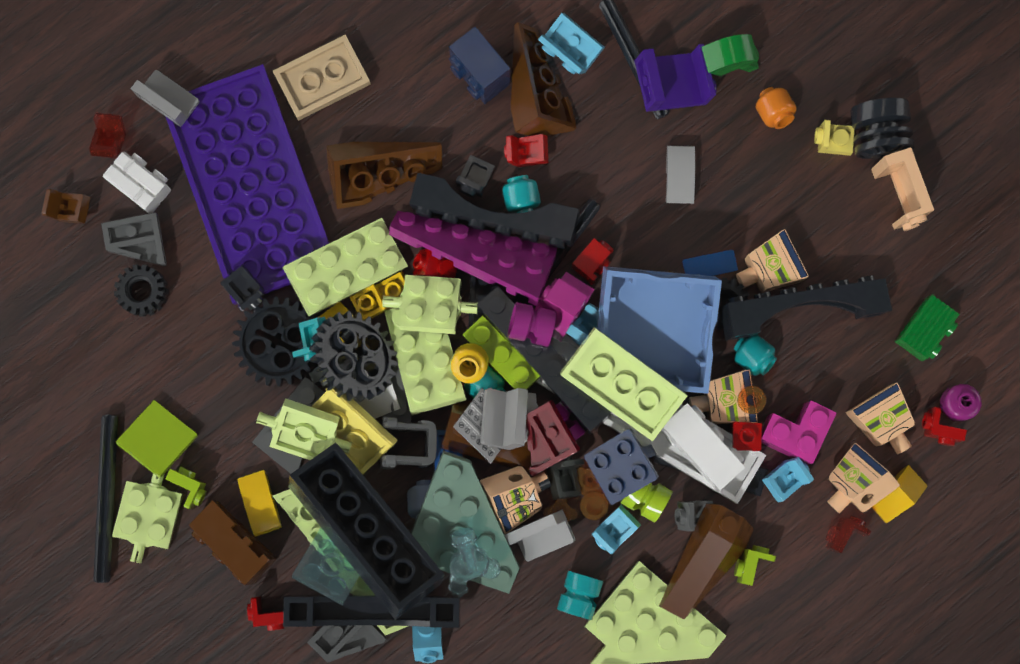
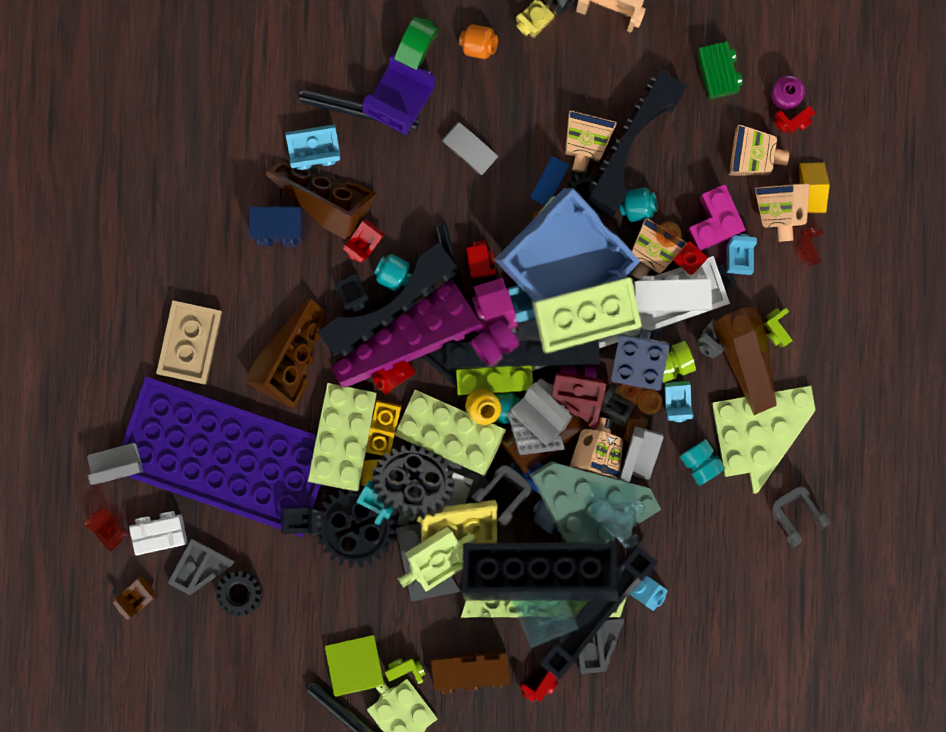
camera: 50 degrees left, 5 degrees up
(259, 503) = (457, 630): yellow slope -> none
(430, 304) = (418, 399): yellowish green plate -> none

